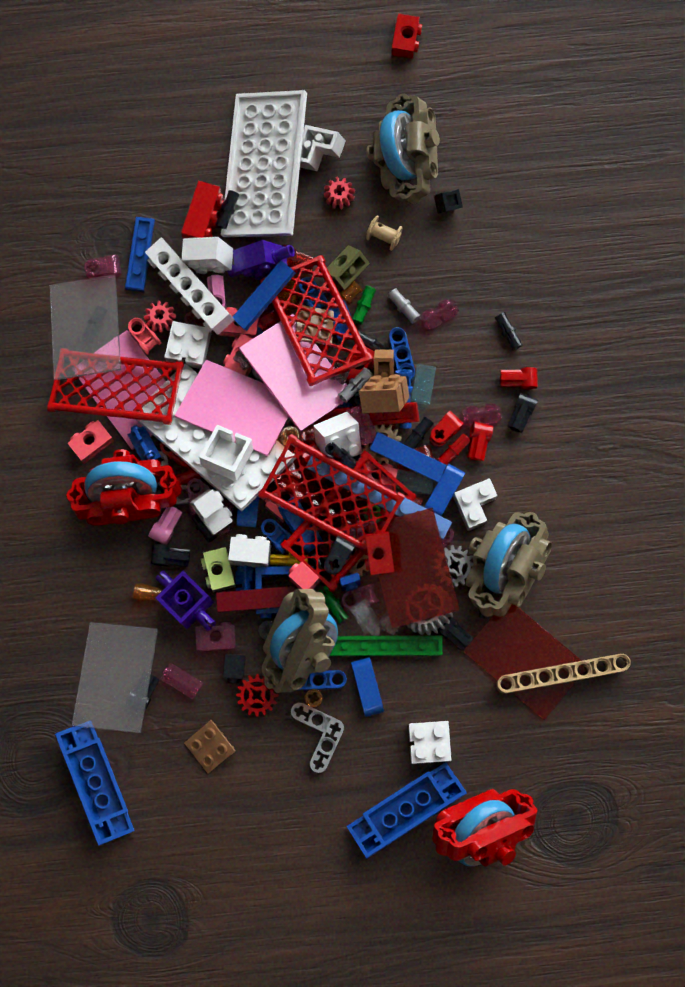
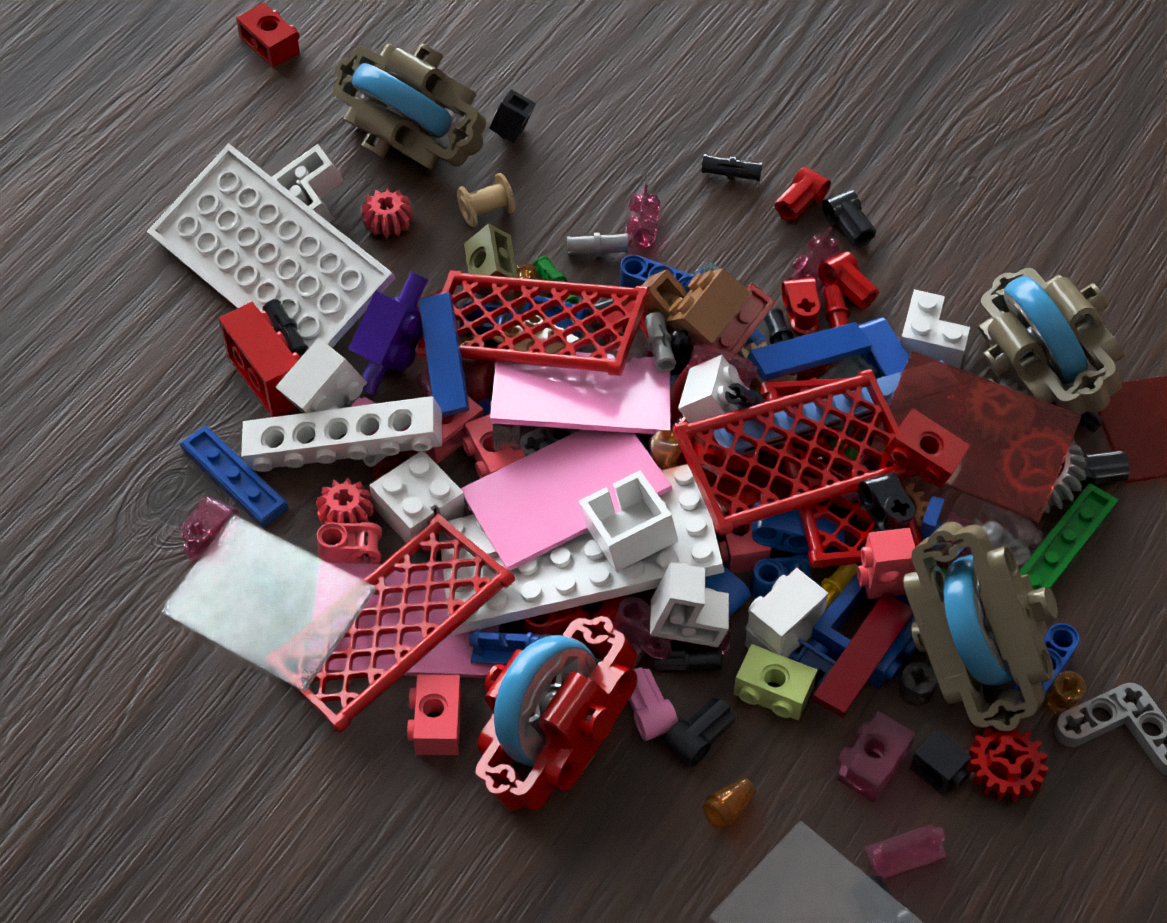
camera: 50 degrees left, 25 degrees down
(193, 608) = (792, 770): dark purple brick -> none
(209, 746) = (1042, 881): medium nougat hinge -> none
(367, 687) = (1102, 618): blue beam -> none

